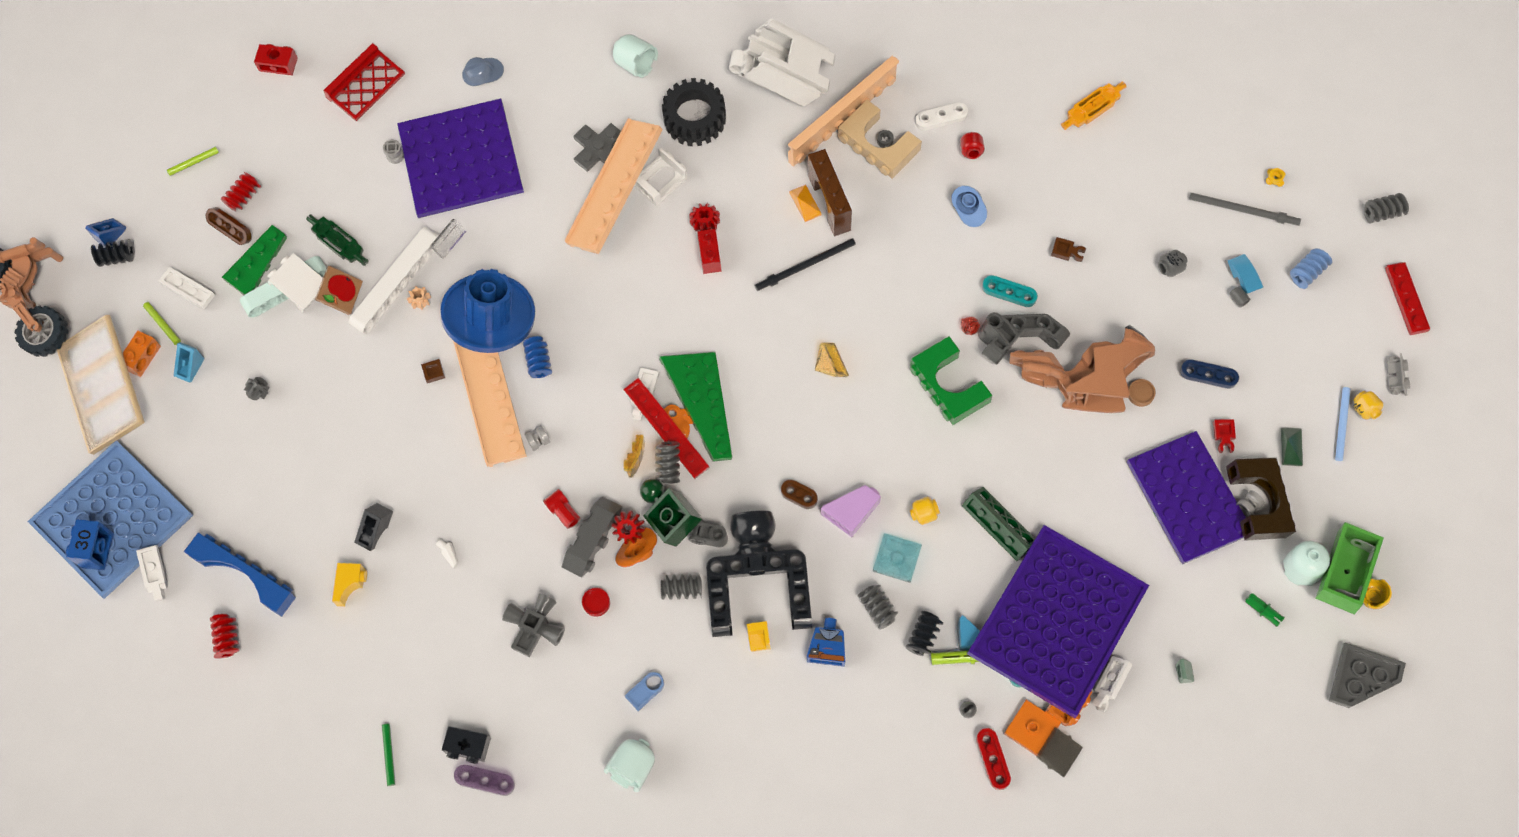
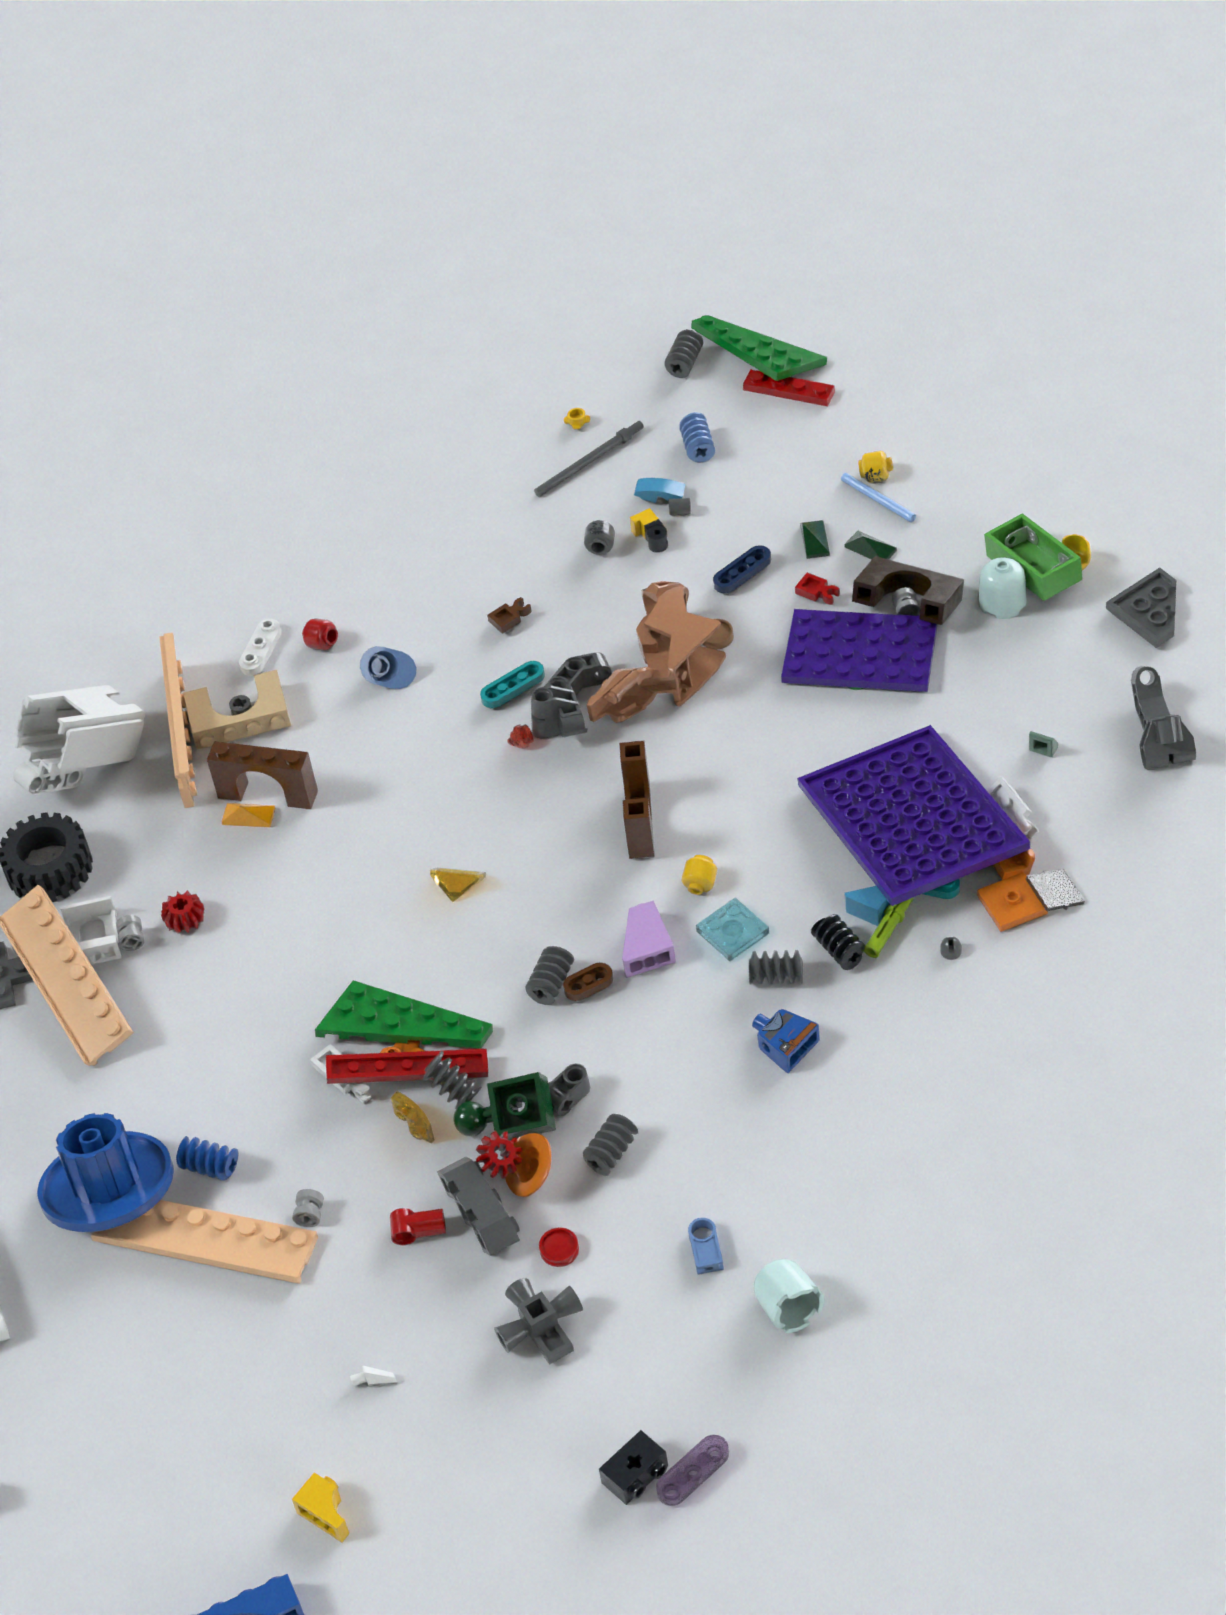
camera: 55 degrees left, 20 degrees down
(372, 525) = (274, 1442): black arch -> none
(388, 755) = (582, 1569): green bar -> none
(419, 298) = (18, 1251): light nougat gear -> none
(433, 371) = (126, 1281): reddish brown plate -> none
(671, 199) = (129, 932): none -> light grey wheel
(709, 251) = (227, 925): red brick -> none
(755, 553) = (601, 1038): black piece -> none
(758, 636) = (725, 1098): yellow panel -> none
(773, 279) = (314, 884): black bar -> none
(788, 467) = (549, 974): none -> dark grey piece
(934, 449) = (637, 801): none -> reddish brown arch
(953, 405) = (599, 793): green arch -> none
(993, 749) = (1012, 946): red plate -> none
(998, 524) = (765, 820): dark green fence -> none
(1081, 114) = (366, 503): light orange piece -> none
(1201, 298) = (651, 528): none -> leg
(1243, 753) = (1164, 734): none -> dark grey connector
(1264, 609) = (1025, 648): green axle -> none
(1273, 404) = (814, 539): none -> dark green slope
(1400, 382) = (856, 425): light grey hinge -> none
(1427, 260) = (763, 352): none -> green wing

